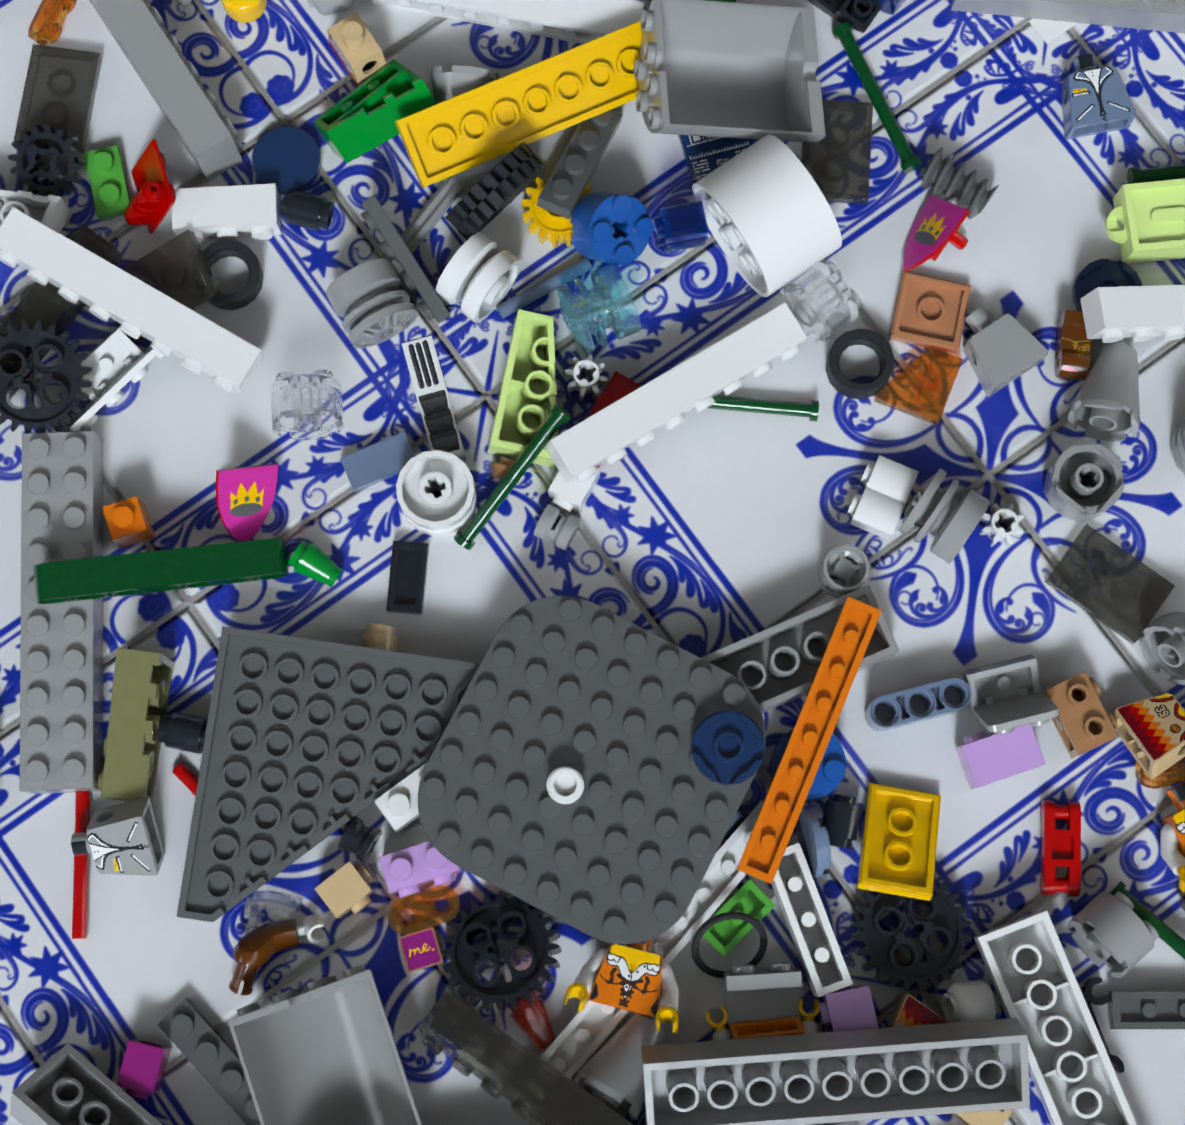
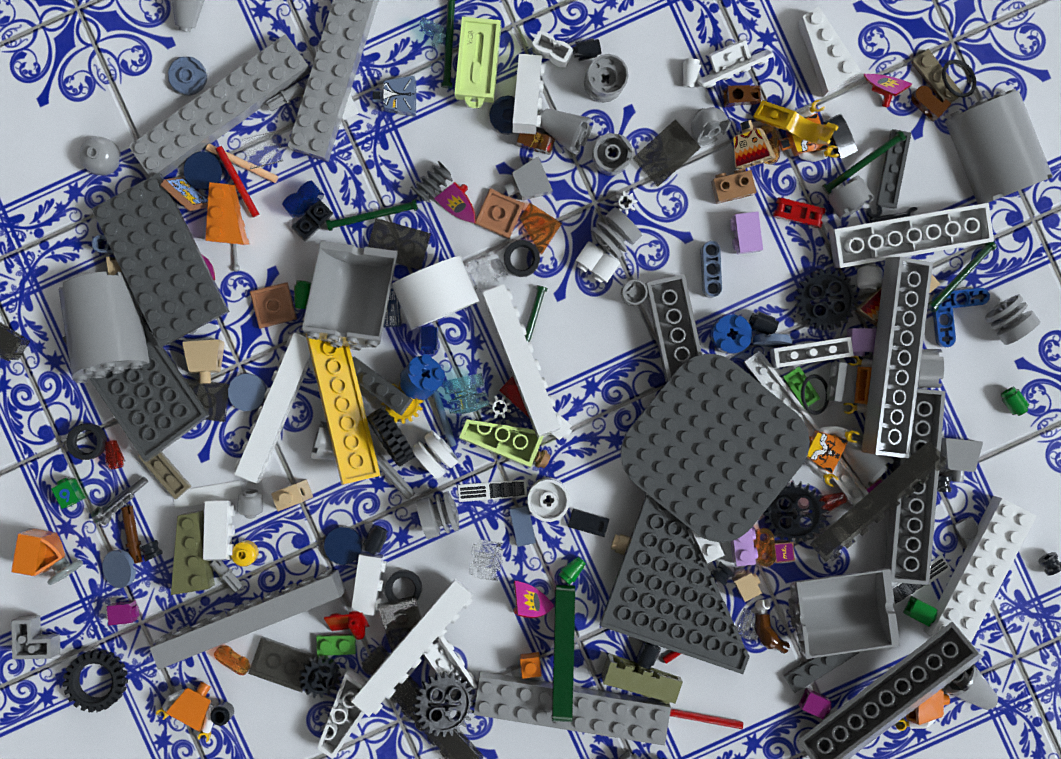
camera: 80 degrees left, 10 degrees up
(122, 839) = (699, 695): light grey torso -> none
(370, 111) = (327, 493): green wedge -> none
(396, 249) = (410, 496): dark grey plate -> none
(549, 428) = (525, 427): dark green bar -> none
(564, 531) = (581, 435): light grey wheel -> none
(565, 785) = (723, 464): white tile -> none
(728, 747) = (721, 376): dark blue tile -> none
(809, 740) = (723, 332): orange plate -> none
(899, 841) = (780, 295): yellow tile -> none
(1009, 695) = (718, 221): light grey bracket -> none

